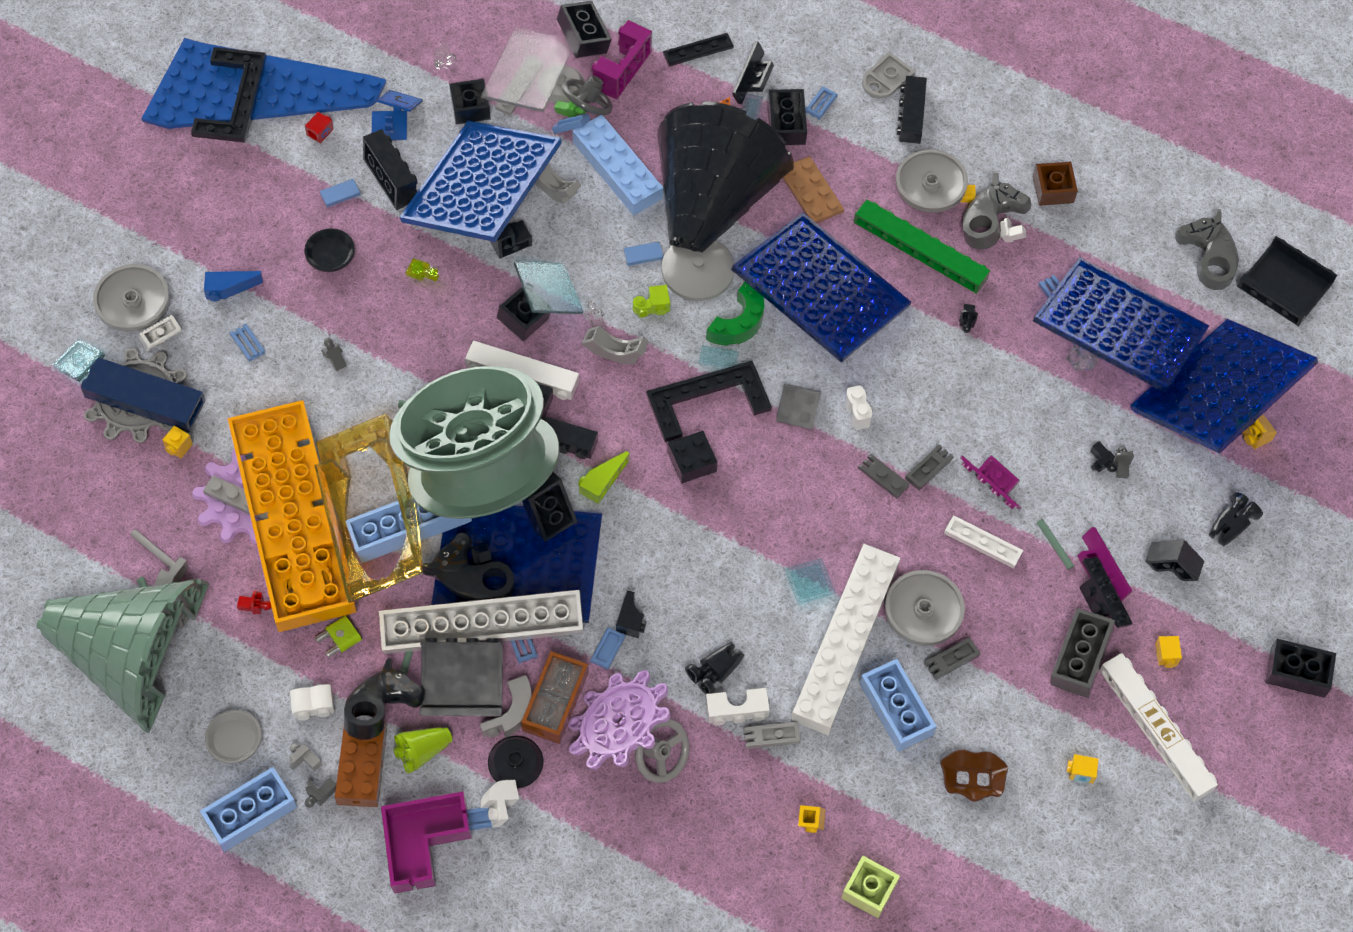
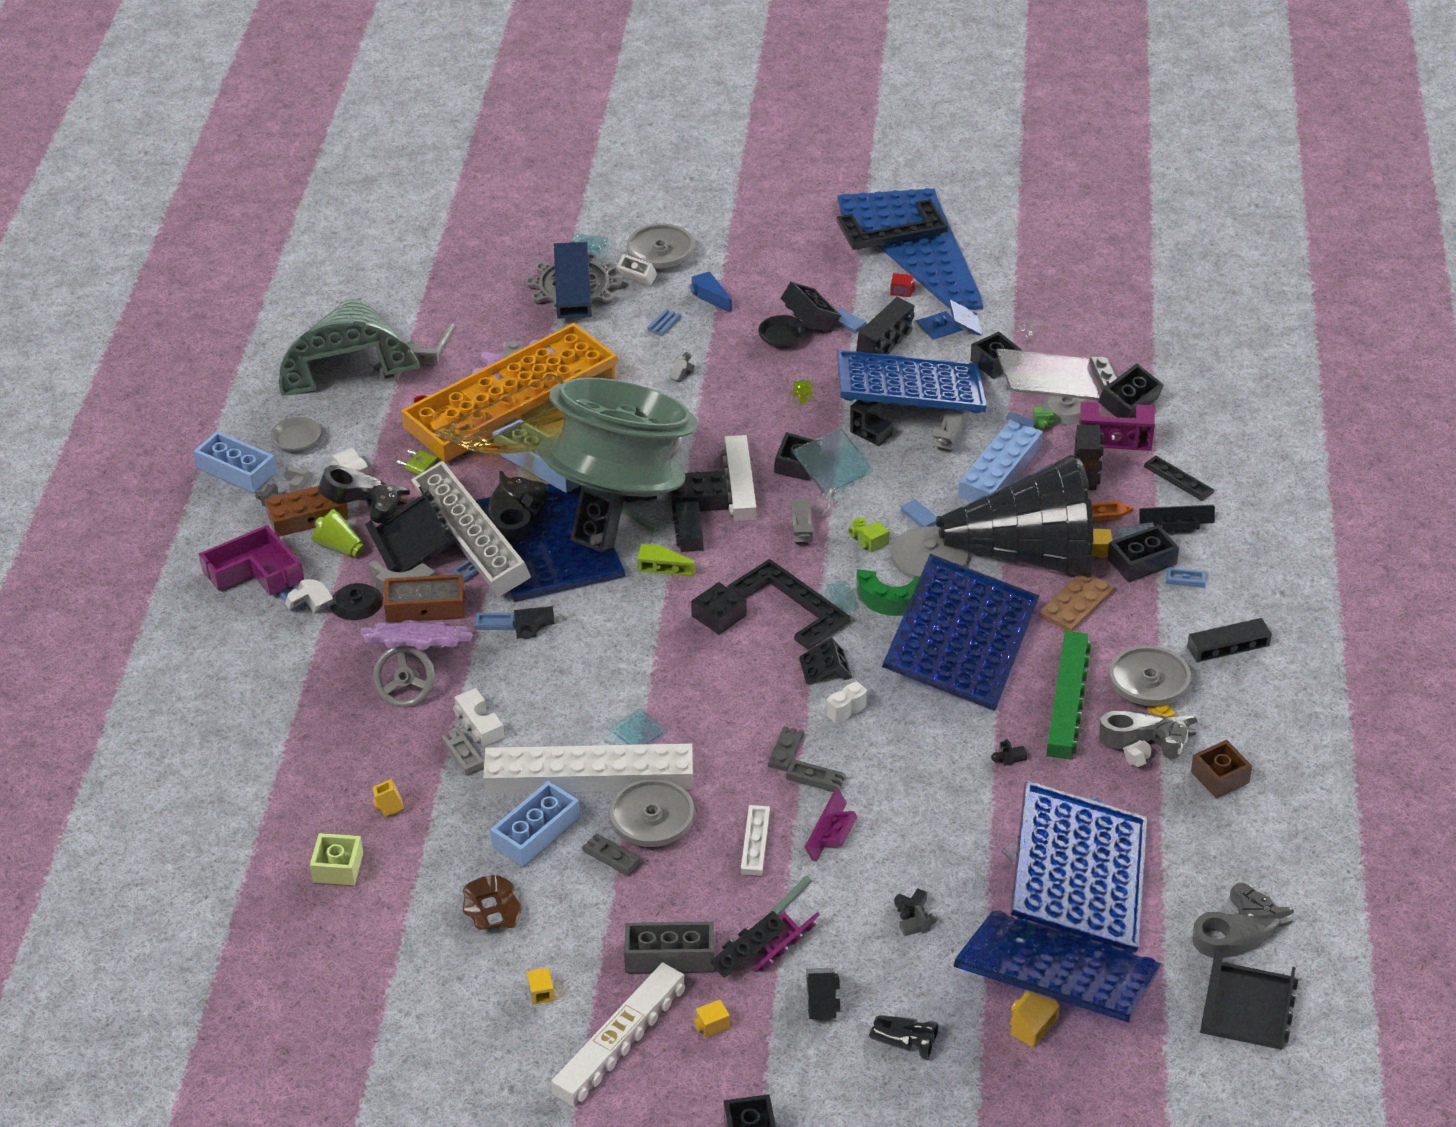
camera: 70 degrees right, 20 degrees down
(177, 442) = (543, 315): yellow brick -> none
(316, 212) = (810, 307): none -> black brick
(540, 36) = (1102, 371): none -> hinge
(589, 93) = (1058, 416): dark grey piece -> none
(658, 95) = (1089, 451): none -> black brick
(717, 662) = (510, 693): black piece -> none
(887, 76) = (1254, 608): light grey tile -> none

